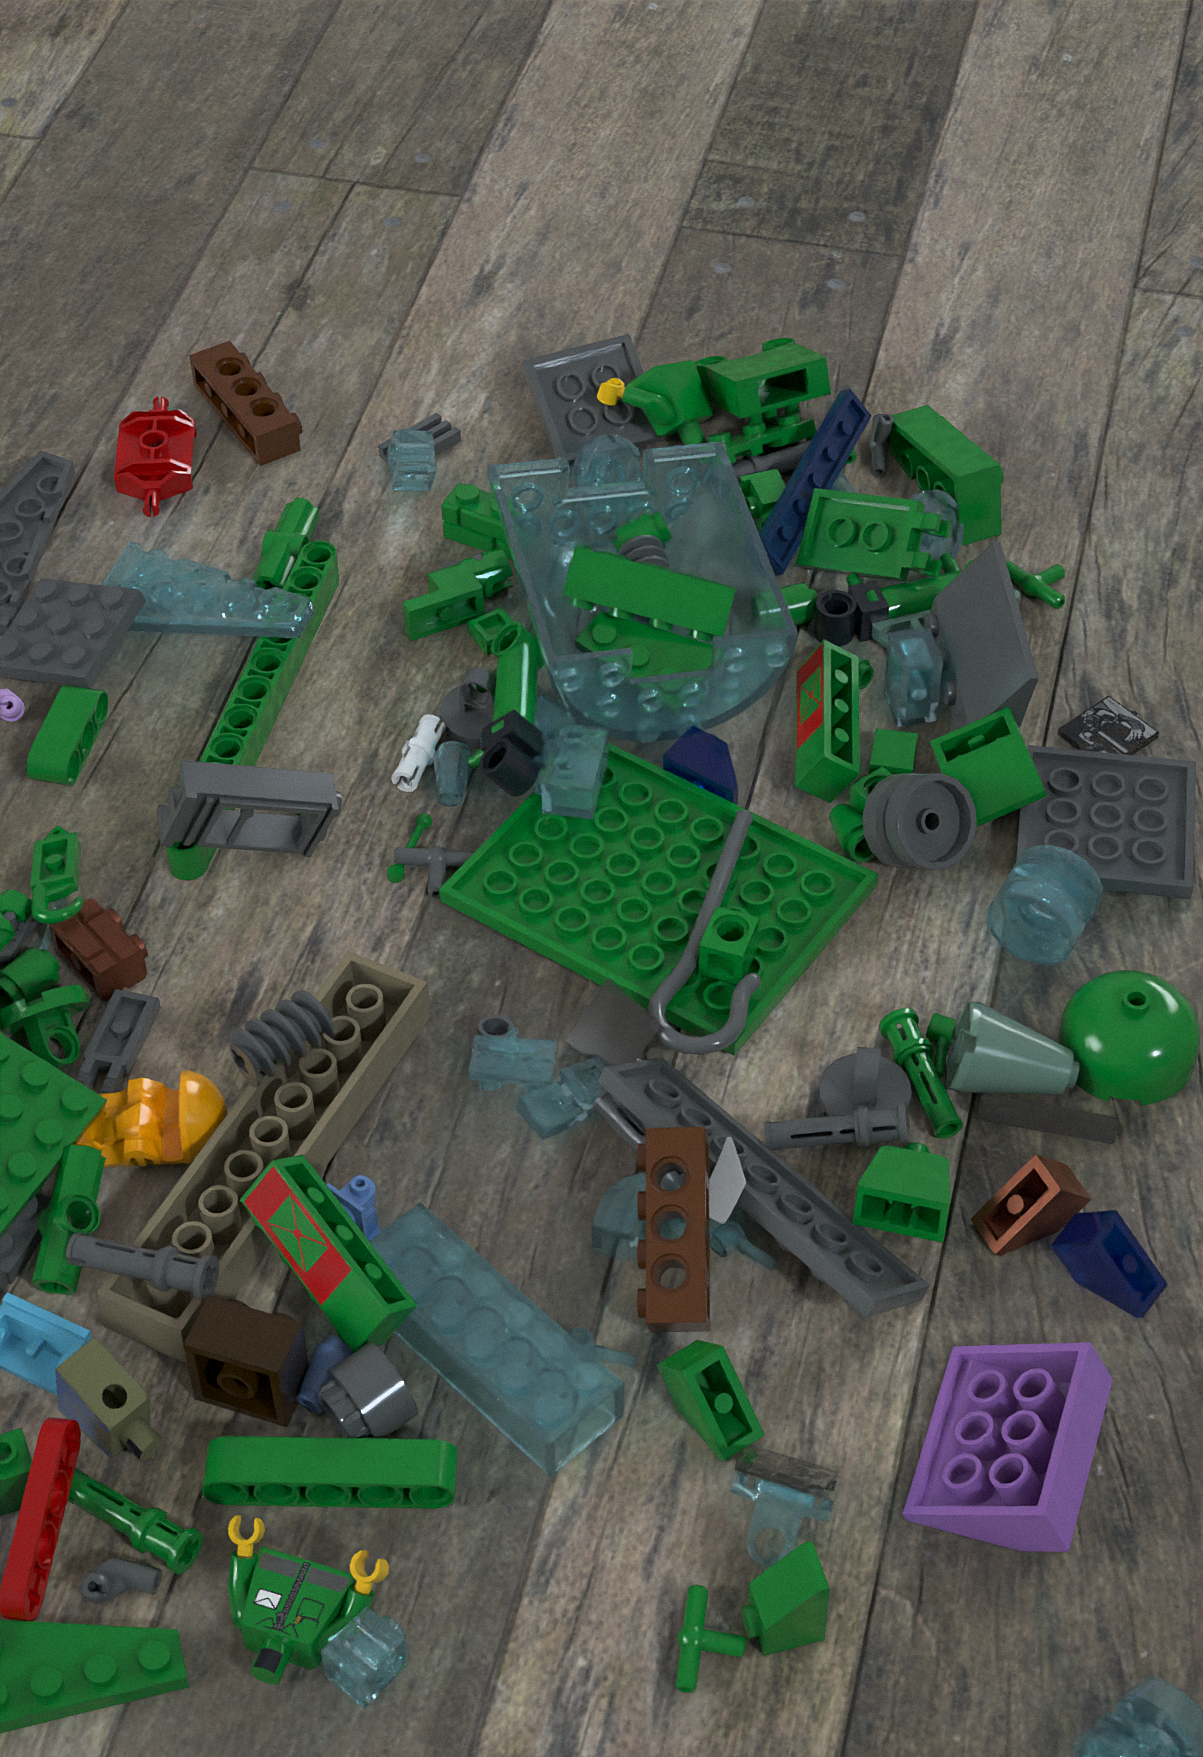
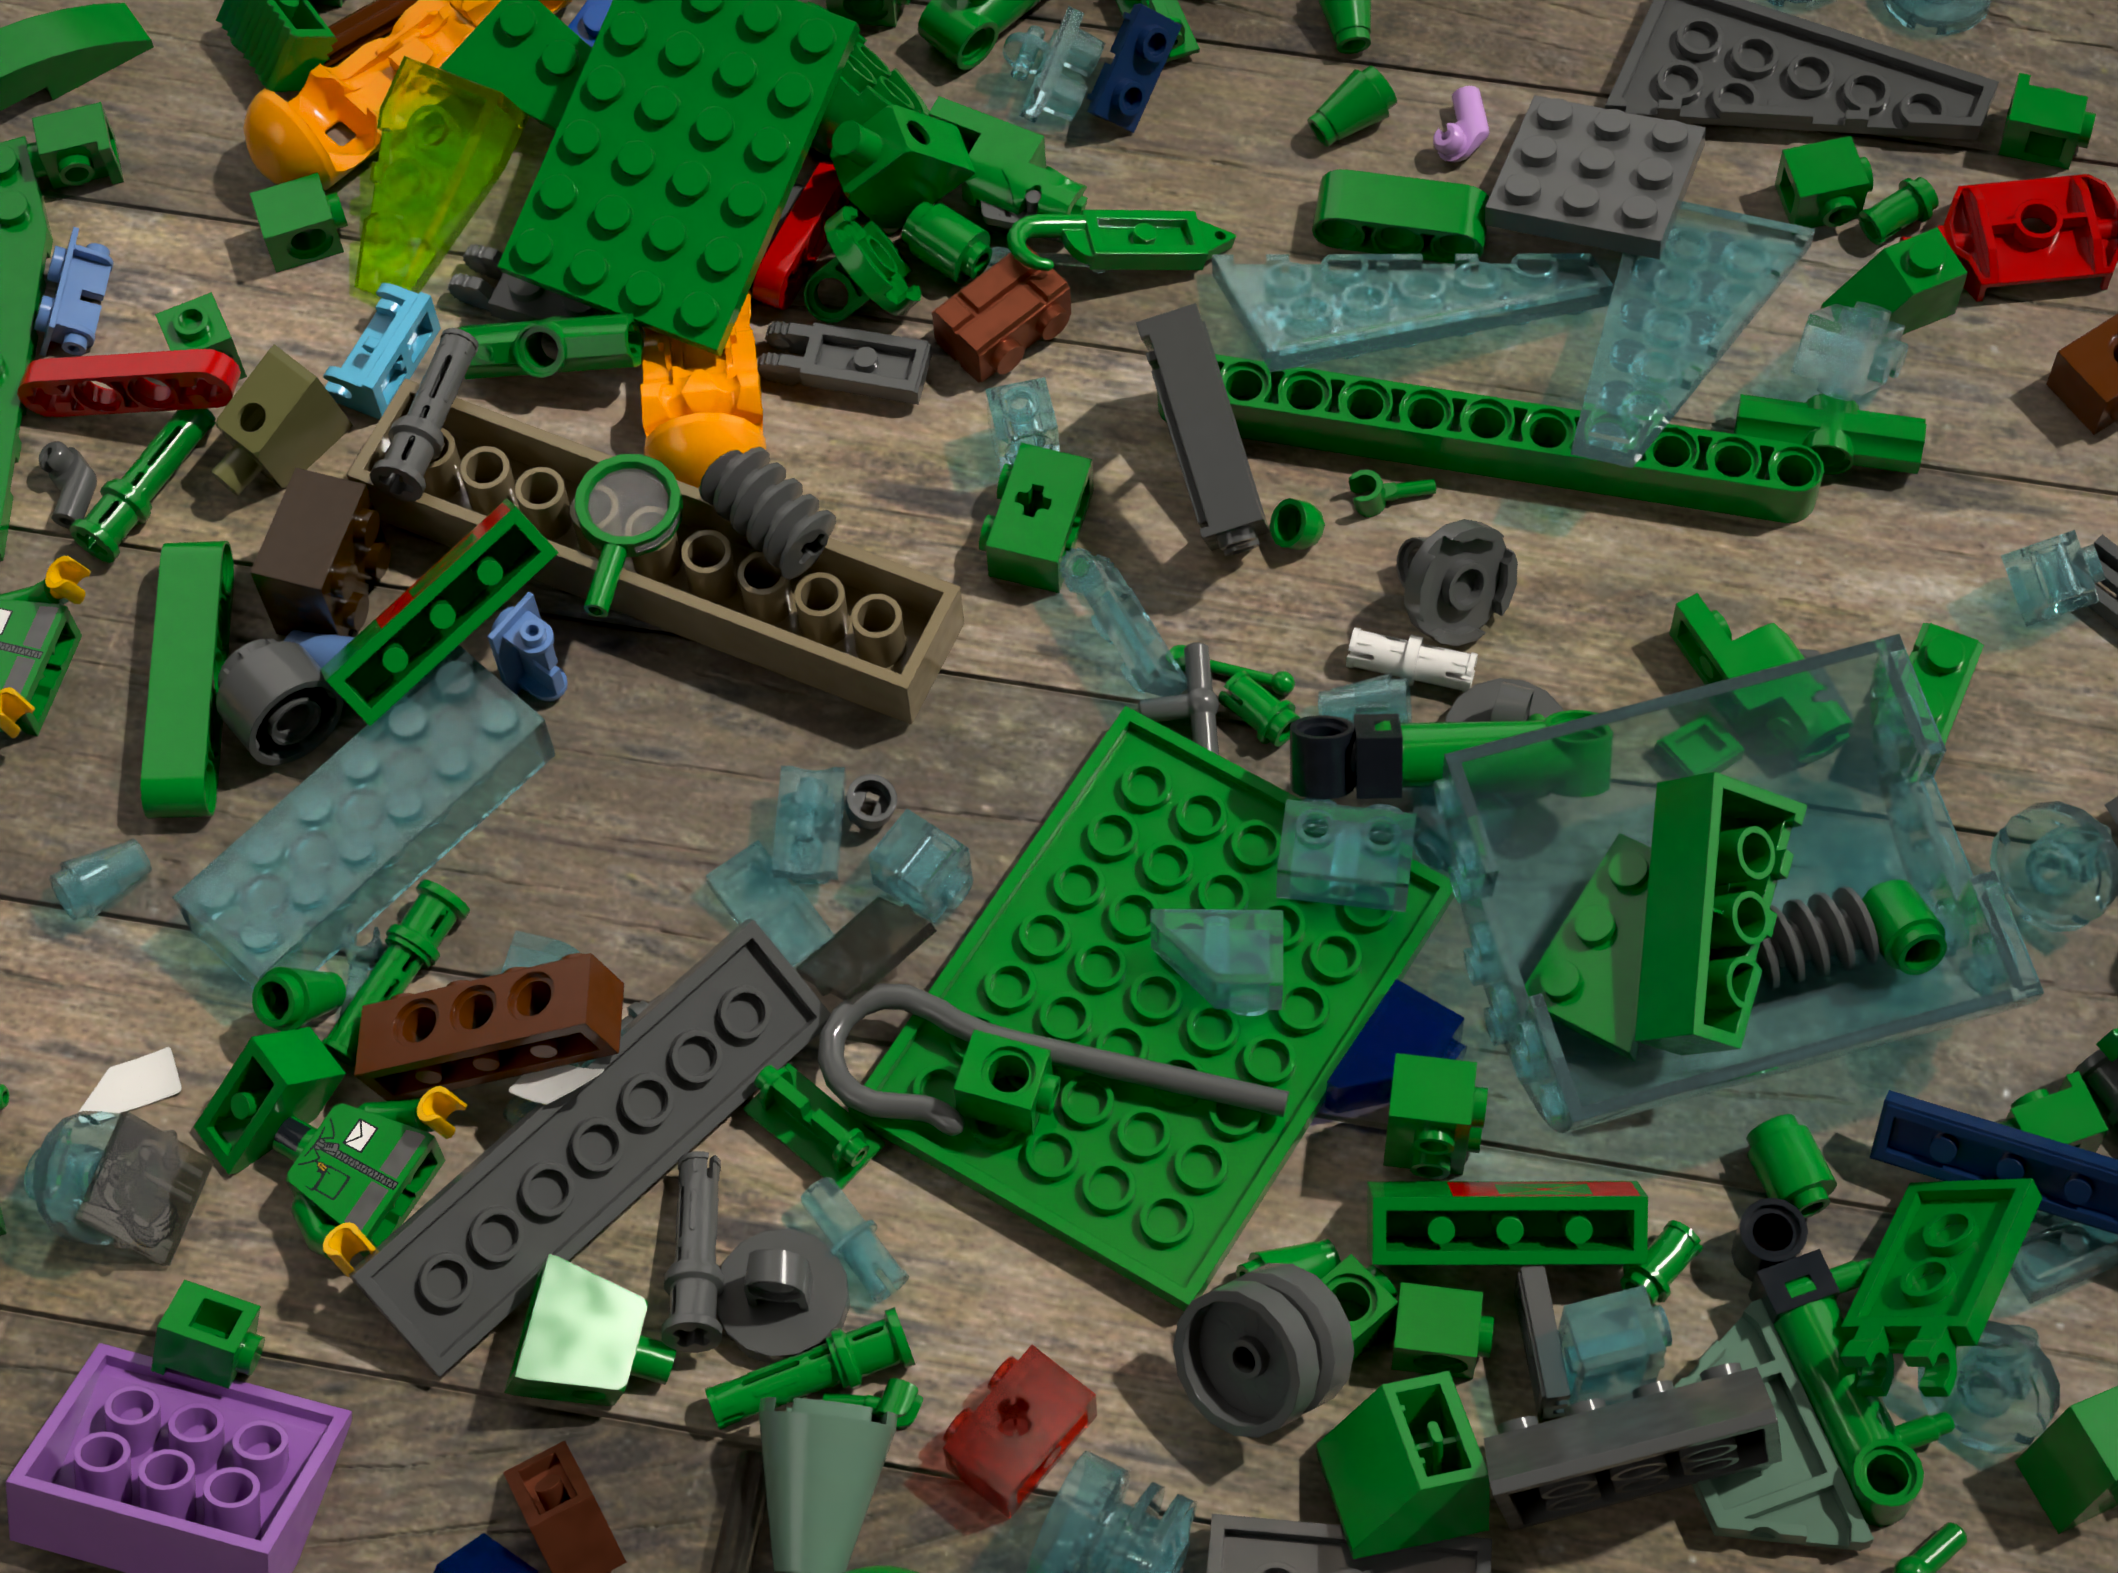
camera: 90 degrees right, 15 degrees up
(76, 436) = (2045, 124): none -> green brick
(97, 534) = (1823, 183): none -> green brick
(119, 501) = (1910, 203): none -> green pin
(140, 744) = (1395, 301): none -> clear light blue wing
(188, 509) = (1912, 279): none -> green slope
(202, 937) = (1019, 415): none -> clear light blue brick
(238, 518) = (1850, 349): none -> clear light blue brick
(254, 1133) = (625, 511): none -> piece
(277, 932) = (1037, 517): none -> green brick
(284, 759) = (1375, 503): none -> green hand
(369, 716) = (1456, 580): none -> dark grey tile
(369, 891) = (1123, 623): none -> clear light blue hinge
(453, 822) = (1259, 709): none -> green pin
(509, 1530) = (99, 878): none -> clear light blue cone
(549, 1004) = (922, 866): none -> clear light blue brick
(588, 1311) = (410, 947): none -> green pin
(638, 1368) = (296, 996): none -> green cone
(645, 830) = (1225, 955): none -> clear light blue slope
(684, 1507) = (136, 1083): none -> white sticker
(744, 1070) = (812, 1124): none -> green hinge
(758, 743) = (1434, 1115): none -> green brick
(777, 1332) = (363, 1170): none -> green torso
(827, 1048) = (852, 1237): none -> clear light blue axle
(904, 714) = (1541, 1342): none -> dark grey tile
(904, 1427) = (208, 1335): none -> green brick
(963, 961) = (1010, 1467): none -> clear red brick

